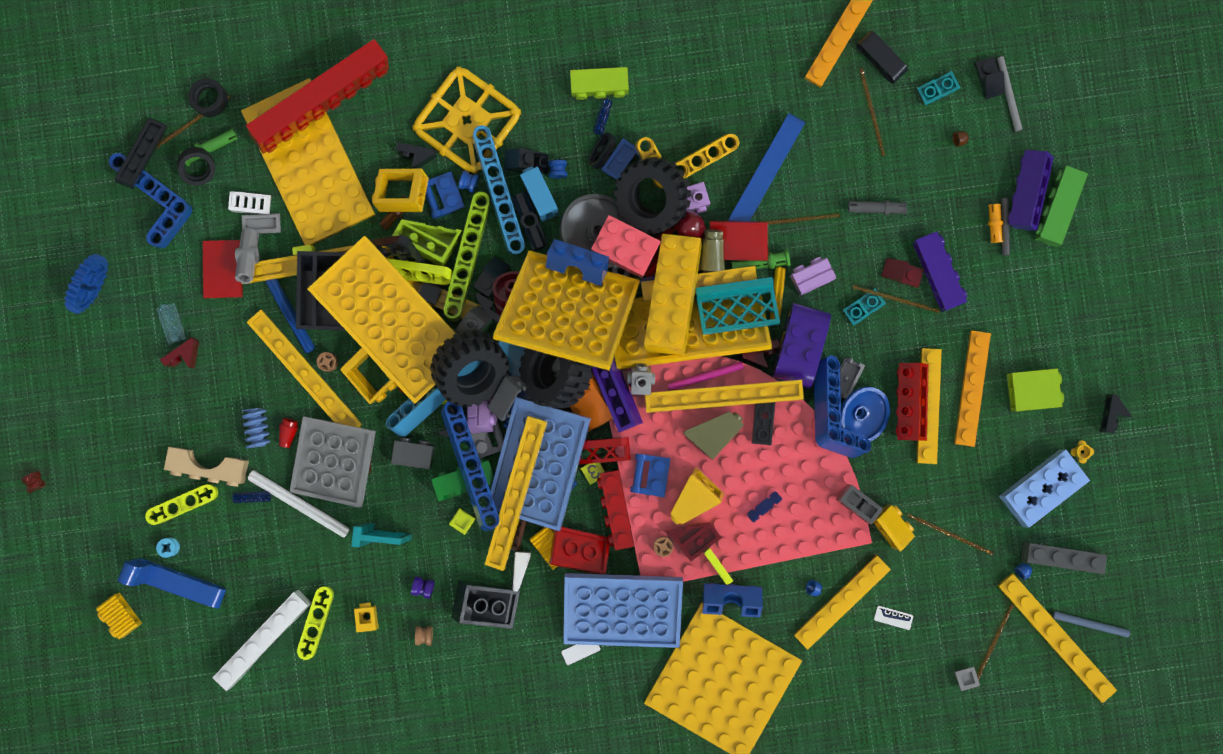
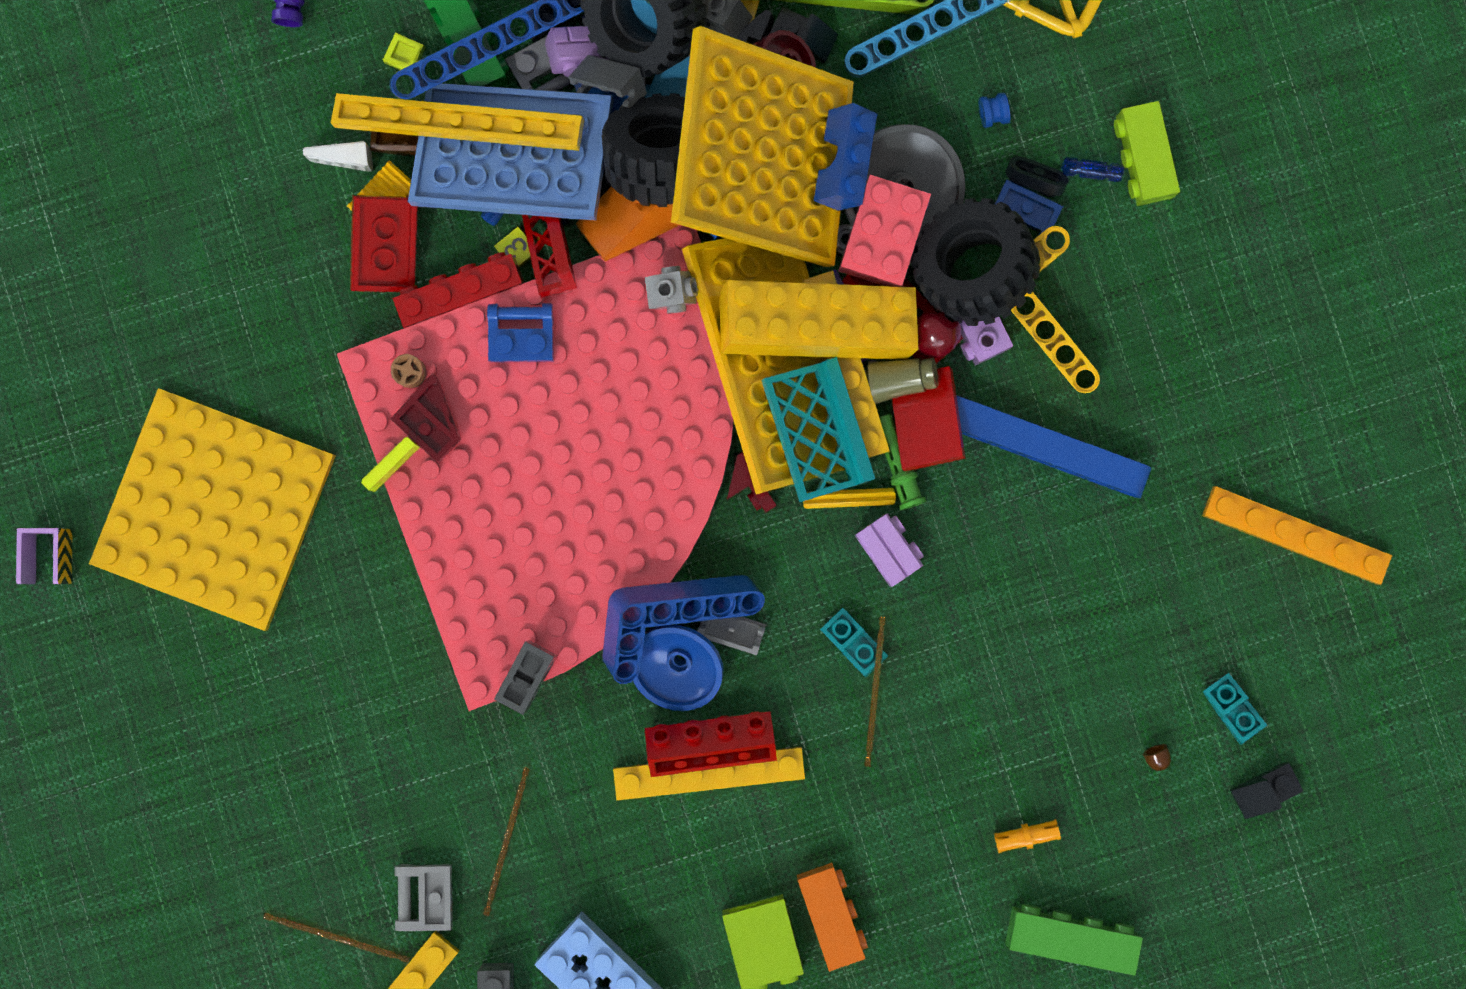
camera: 80 degrees right, 0 degrees up
(423, 635) = (212, 21): medium nougat wheel -> none
(485, 605) = (275, 109): black slope -> none
(520, 159) = (998, 57): black slope -> none
(525, 209) = (918, 70): black piece -> none
(539, 193) = (948, 84): dark azure brick -> none
(578, 652) = (228, 276): white sticker -> none
(618, 397) = (638, 256): dark purple brick -> none
(622, 610) = (298, 326): medium blue plate -> none
(696, 498) = (496, 410): yellow slope -> none
(705, 376) = (695, 396): dark pink bar -> none
(715, 433) = (603, 424): olive slope -> none
(724, 396) = (666, 430): yellow plate -> none
(746, 597) = (351, 525): blue arch -> none
(763, 428) = (668, 500): black tile -> none
(763, 507) = (498, 525): clear blue axle -> none
(801, 344) = (772, 544): dark purple brick -> none
(804, 219) = (980, 518): clear orange piece -> none
(812, 584) = (384, 631): blue hinge -> none
(842, 602) = (369, 681): yellow plate -> none
(872, 112) = (1176, 606): clear orange piece -> none
(877, 207) = (1020, 638): dark grey pin -> none
(882, 57) = (1270, 607): black beam -> none
(893, 617) = (357, 769): white sticker -> none
(894, 528) = (501, 743): yellow slope -> none
(902, 272) = (920, 696): dark red slope -> none
(939, 271) = (932, 756): dark purple brick -> none
(967, 678) = (276, 903): light grey plate -> none
(972, 388) = (749, 840): light orange plate -> none
(978, 583) = (434, 897): none -> light grey plate
(1005, 227) = (1023, 854): dark grey bar -> none
(1009, 95) = (1244, 828): light grey bar -> none
(1023, 571) = (465, 969): blue hinge -> none
(1025, 346) = (832, 916): none -> orange brick
(1030, 190) = (1092, 885): dark purple brick -> none

